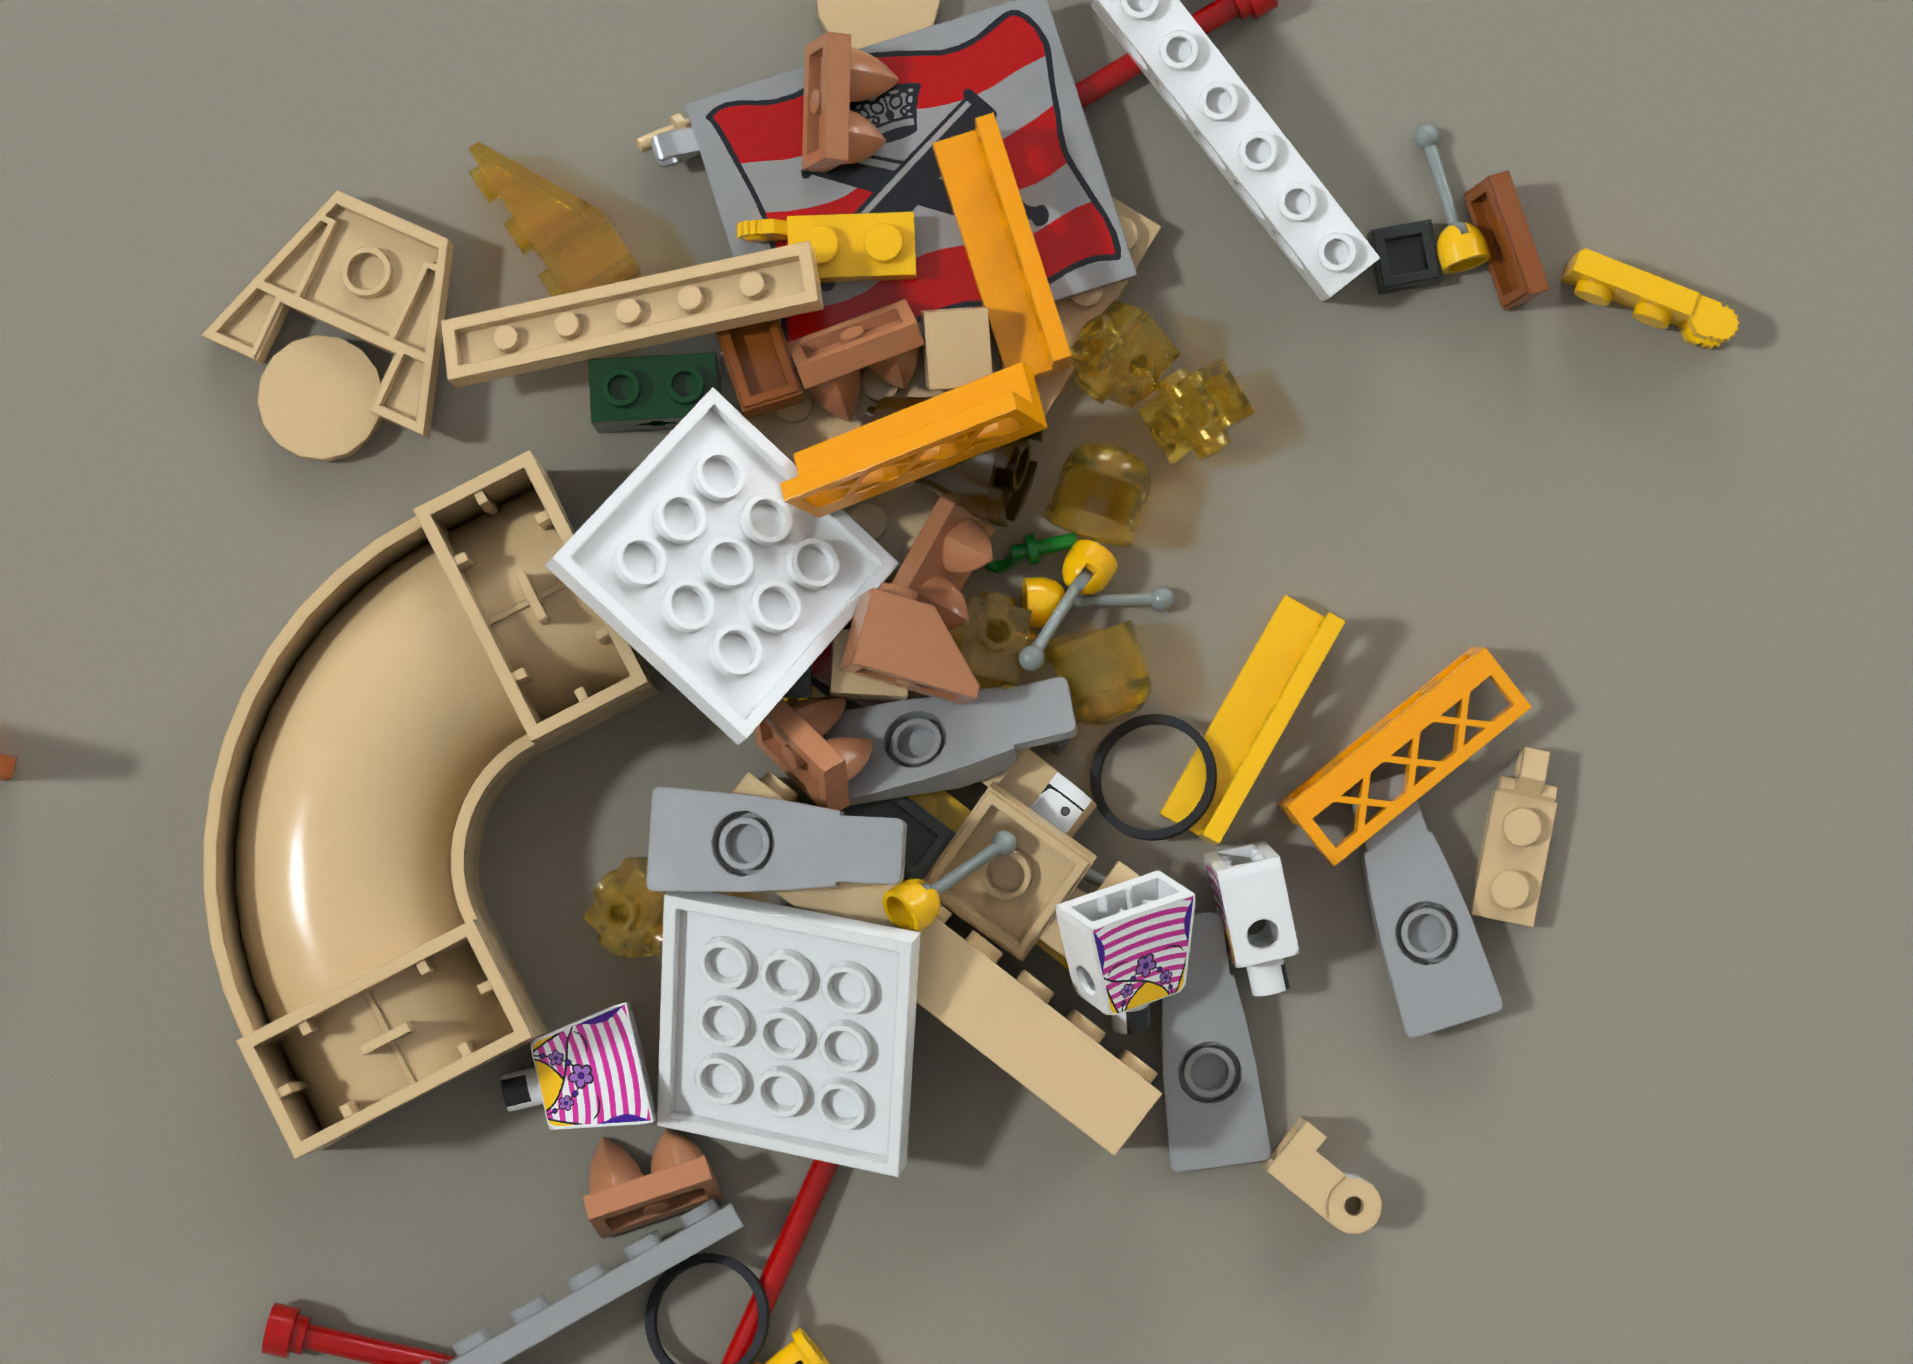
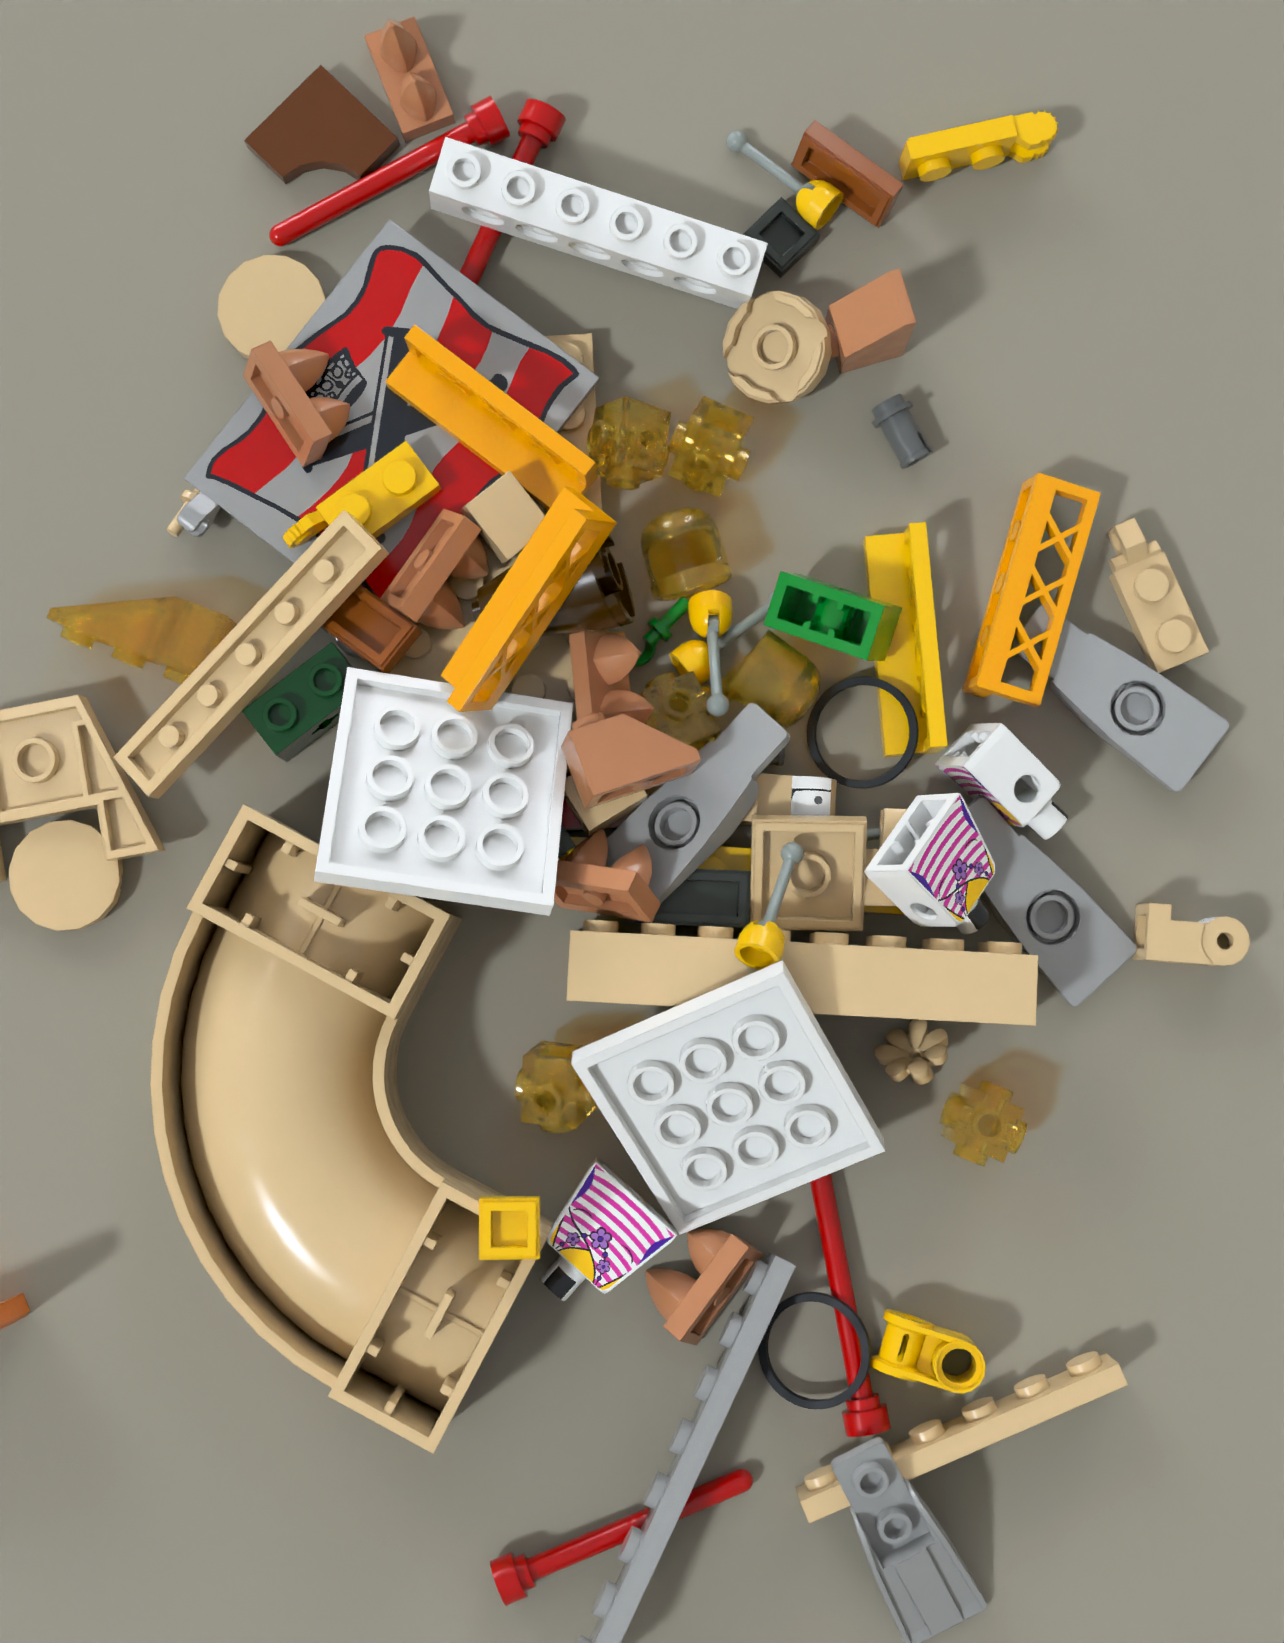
camera: 30 degrees left, 0 degrees up
(504, 1003) = (509, 1227): none -> yellow tile
(765, 844) = (622, 974): light grey piece -> none
(991, 1108) = (913, 1052): none -> tan plant
(1002, 1192) = (962, 1116): none -> clear yellow brick
(1198, 649) = (832, 616): none -> green brick
(1325, 360) = (777, 347): none -> tan tile
(1389, 518) = (901, 430): none -> dark grey pin
(1423, 398) = (871, 323): none -> nougat slope

